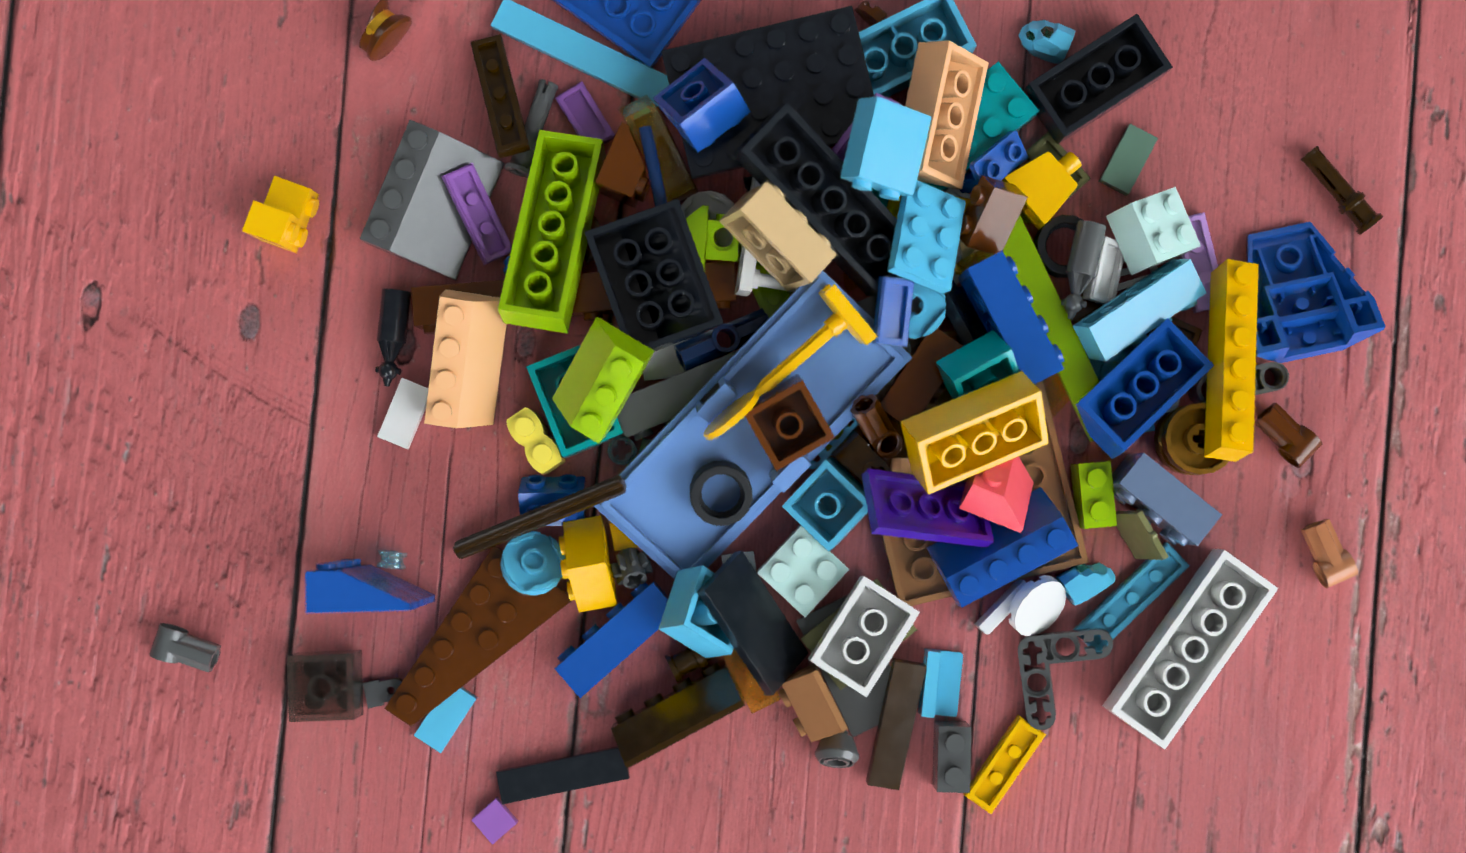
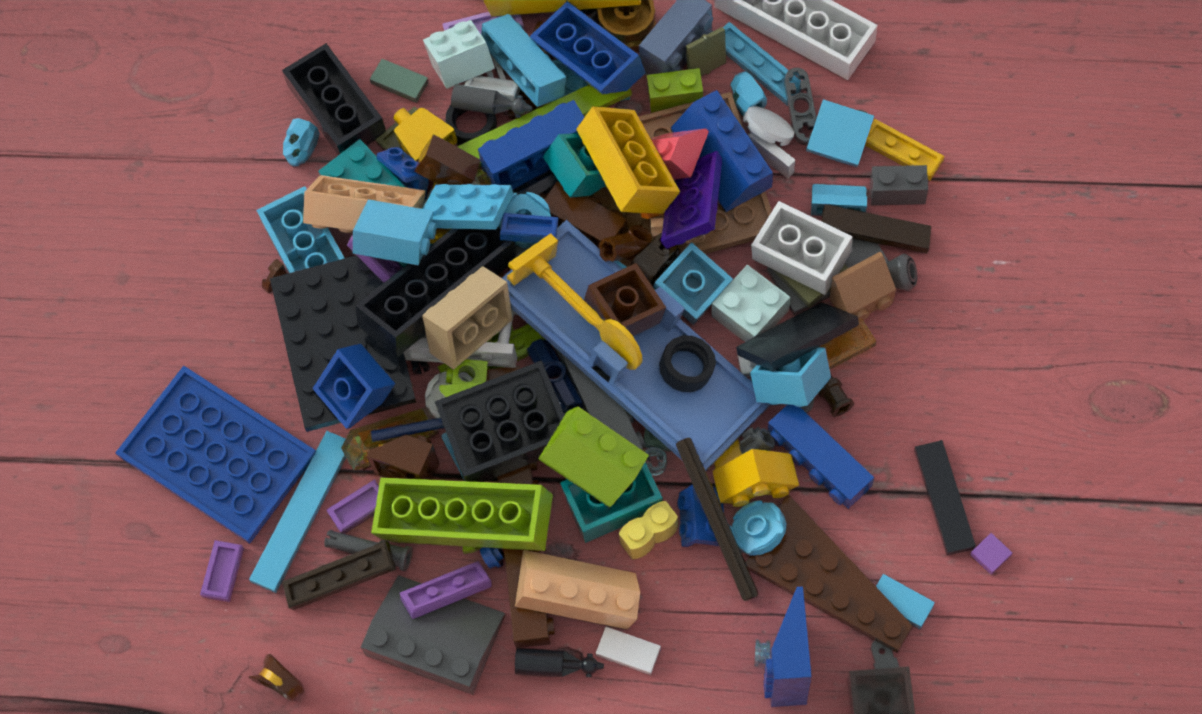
camera: 85 degrees left, 20 degrees down
(676, 714) = (882, 397): dark brown slope -> none
(1024, 691) = (840, 133): none -> medium azure tile

